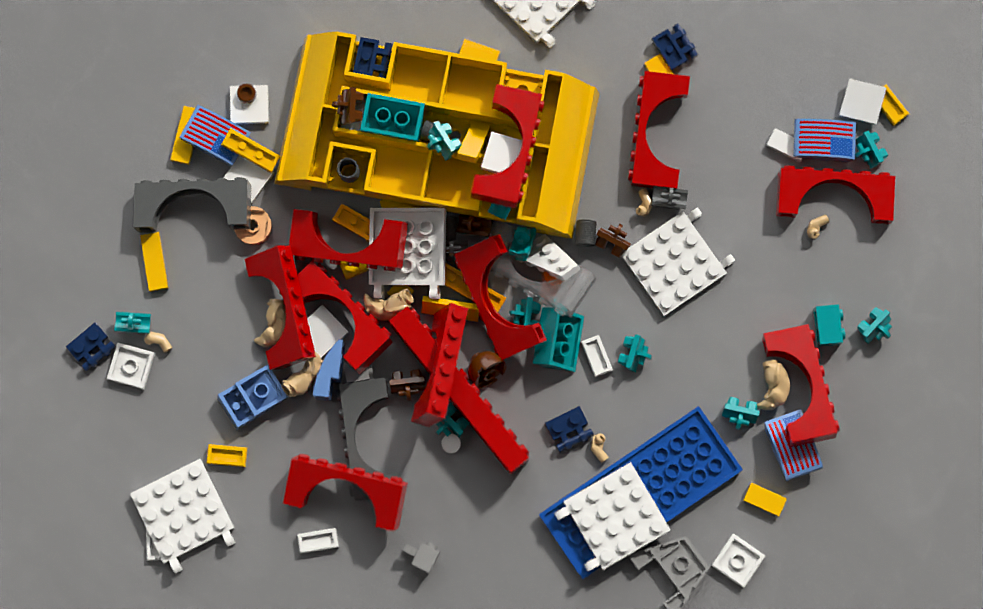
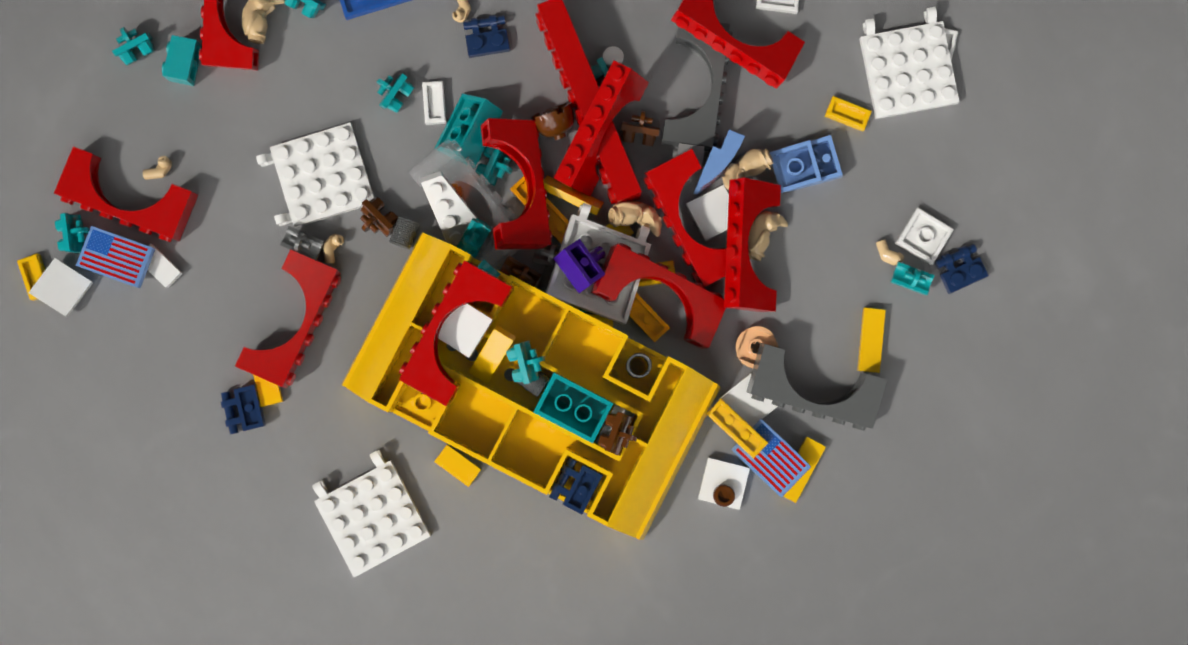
camera: 170 degrees left, 5 degrees up
(422, 238) = (580, 265): none -> dark purple brick

